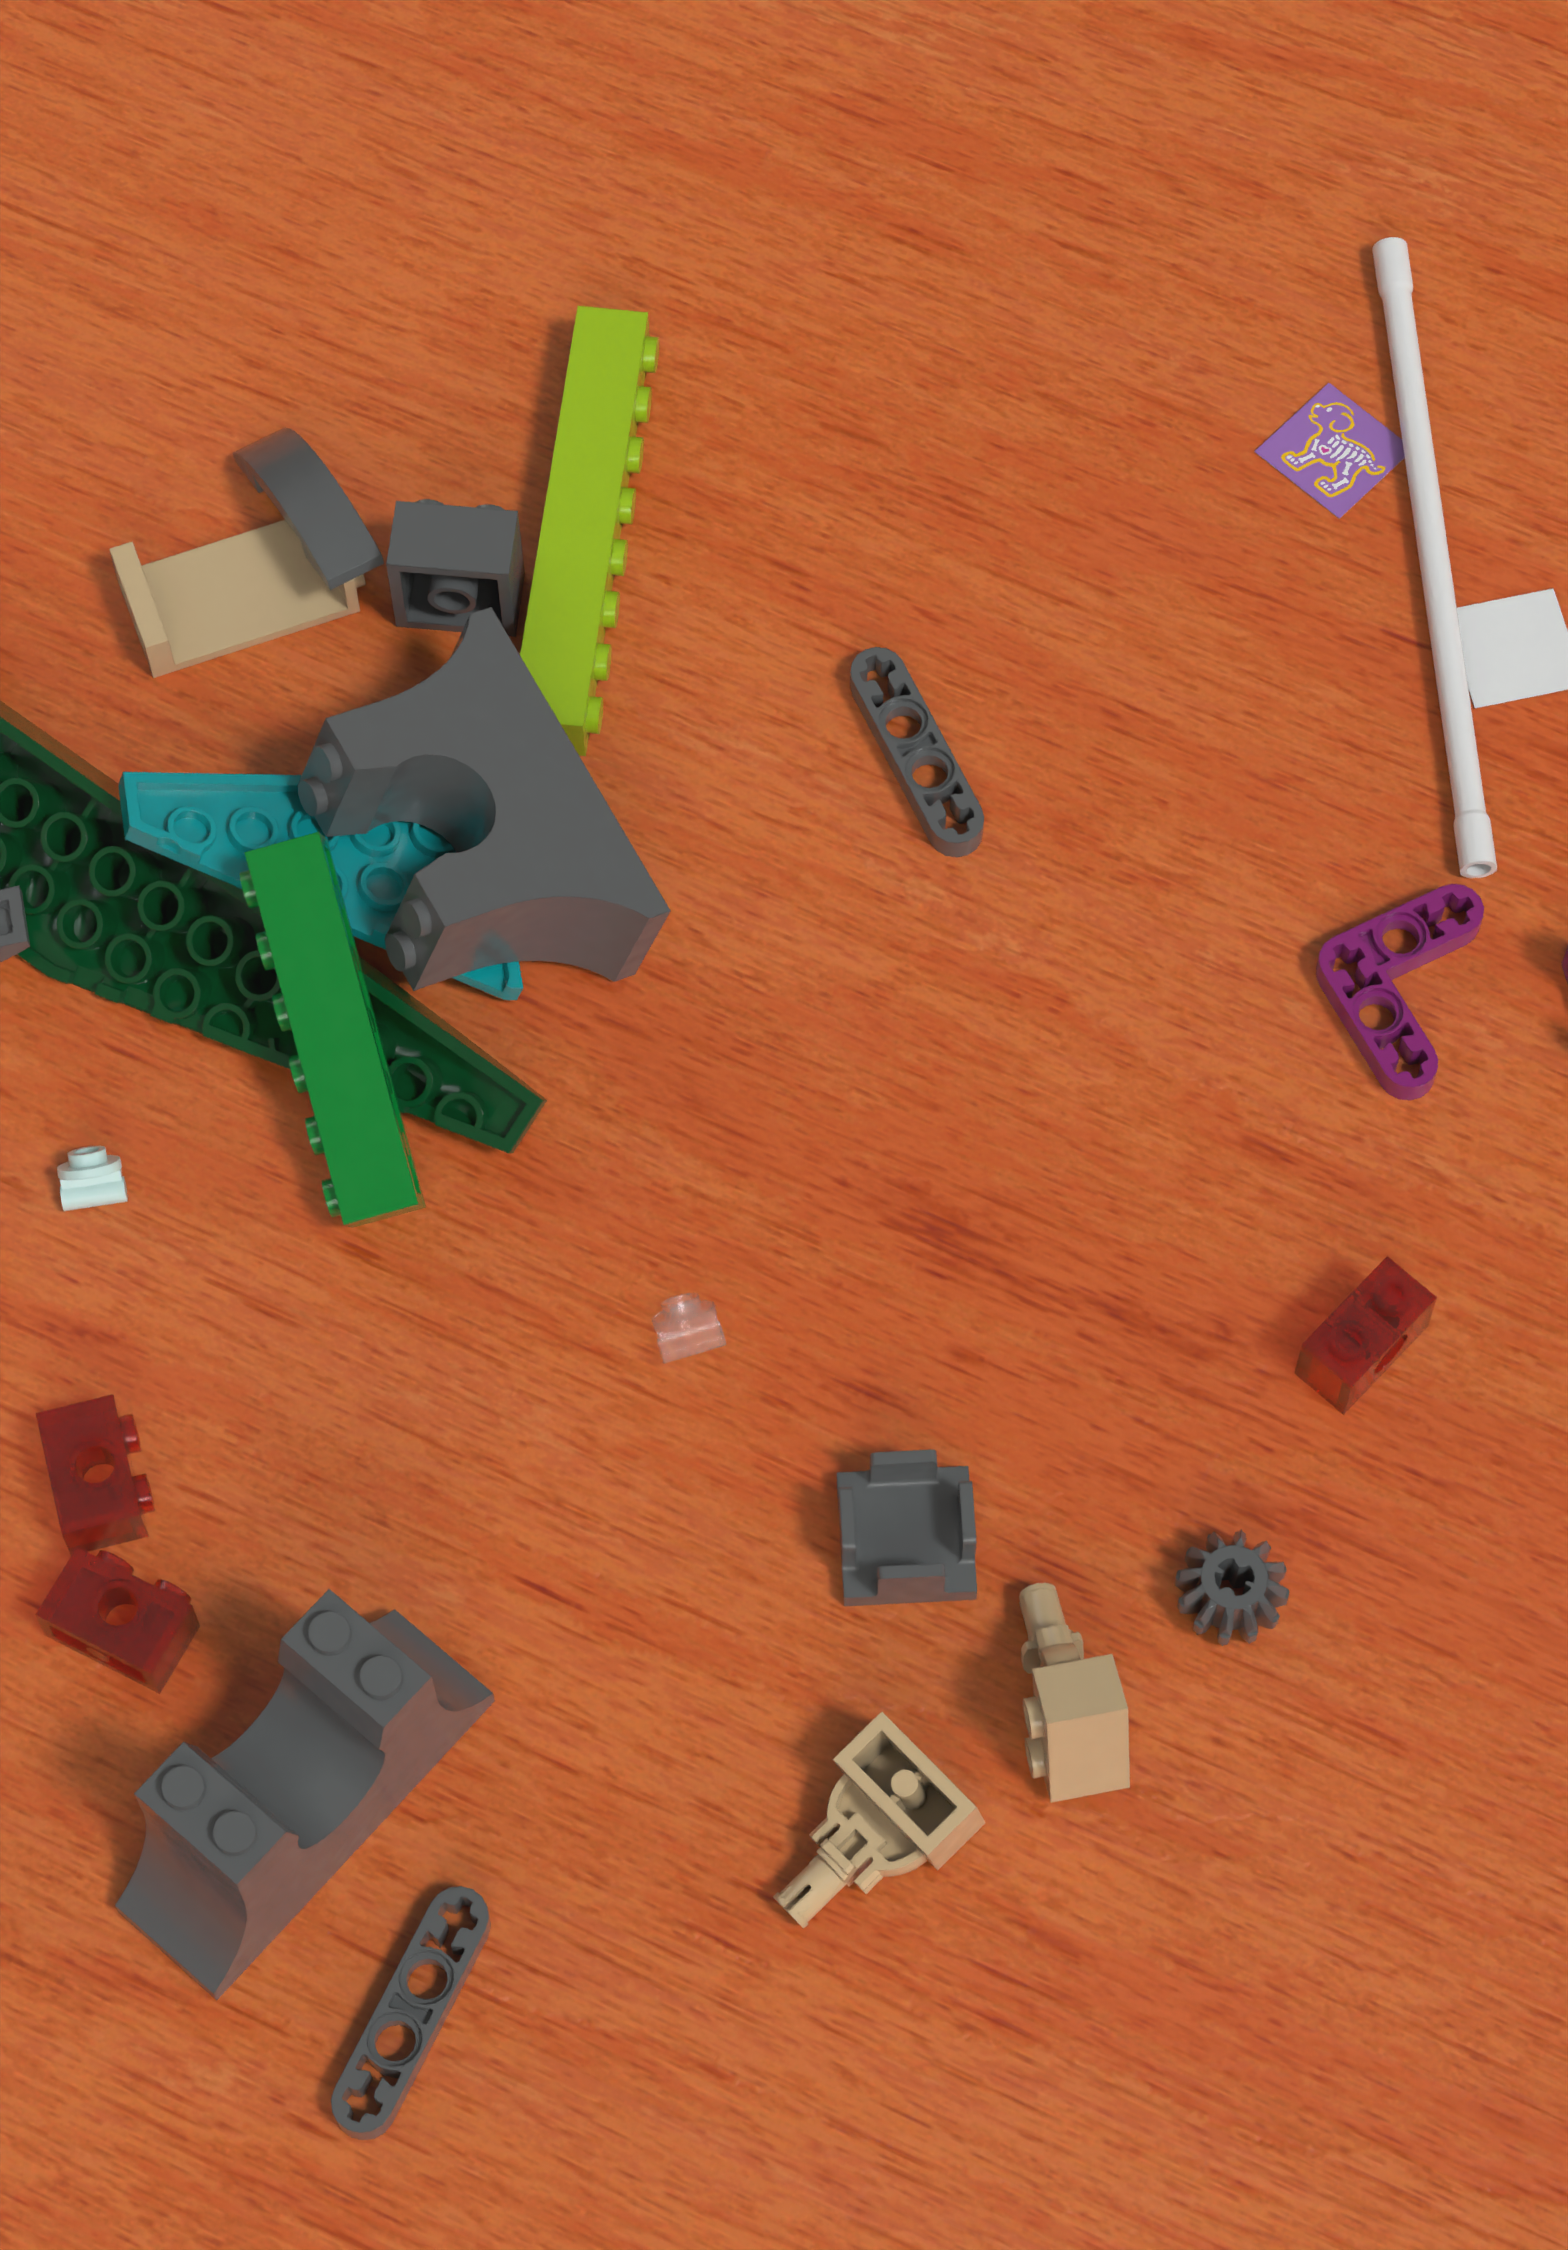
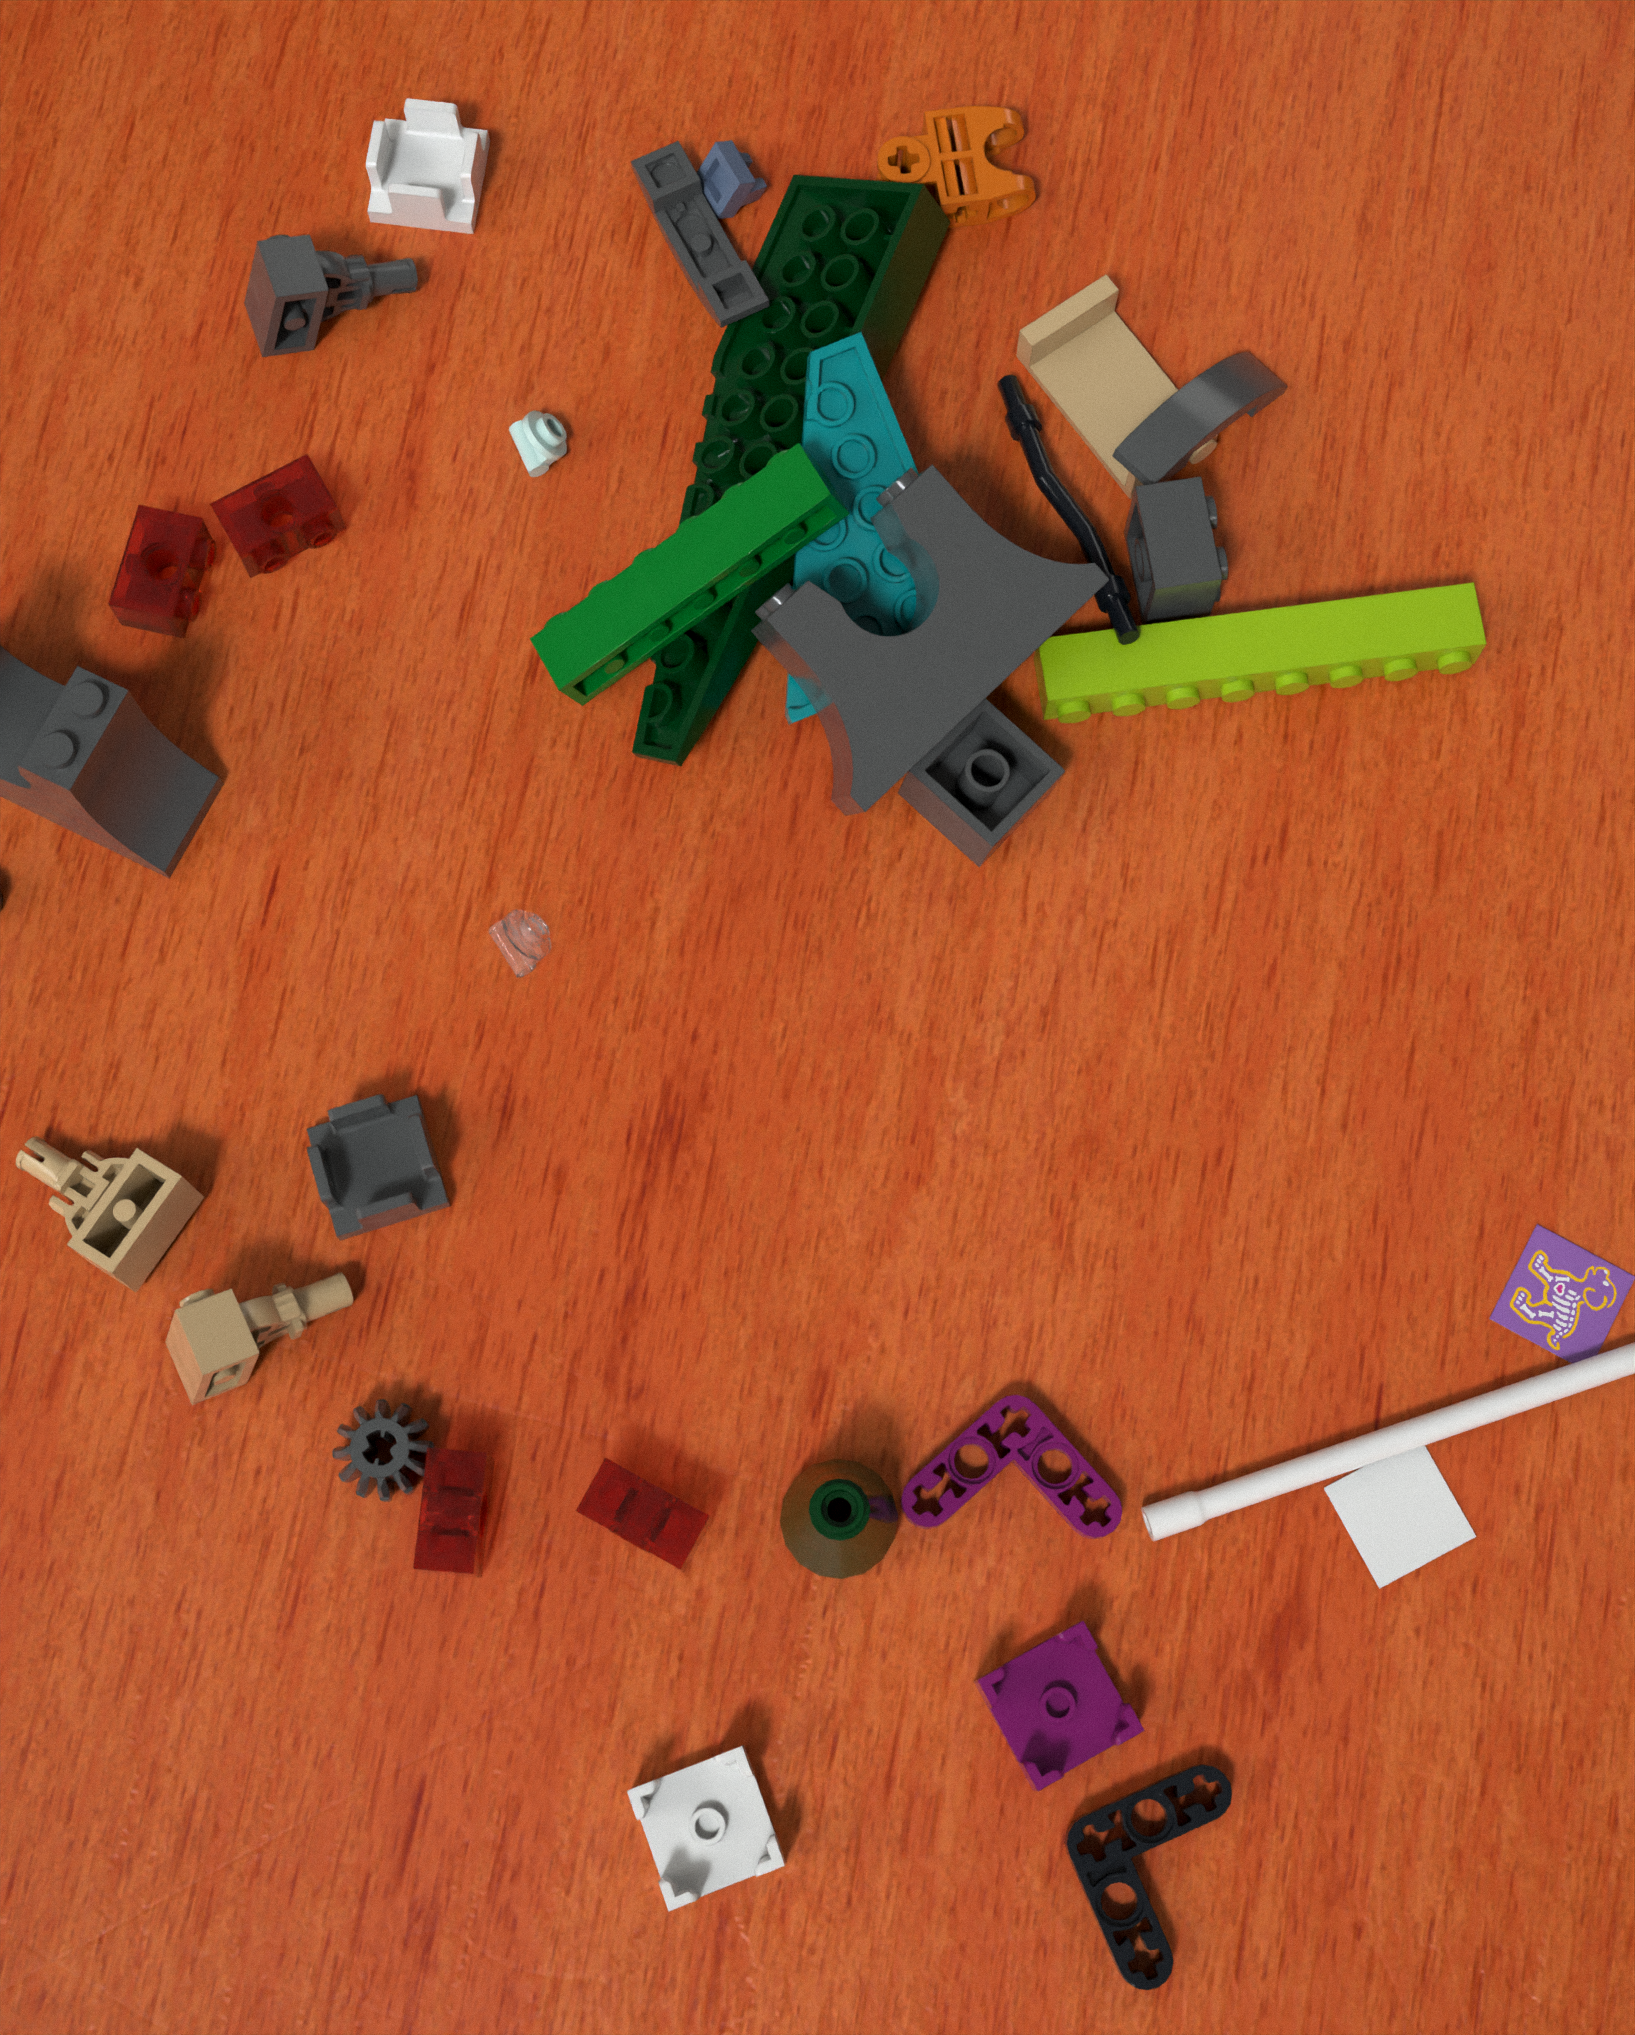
camera: 75 degrees right, 10 degrees up
(247, 681) = (1025, 428): none -> black bar
(668, 807) = (981, 782): none -> dark grey brick
(922, 749) = (1120, 990): dark grey beam -> none
(1319, 1525) = (454, 1512): none -> clear red brick
(1409, 1148) = (832, 1546): none -> cone

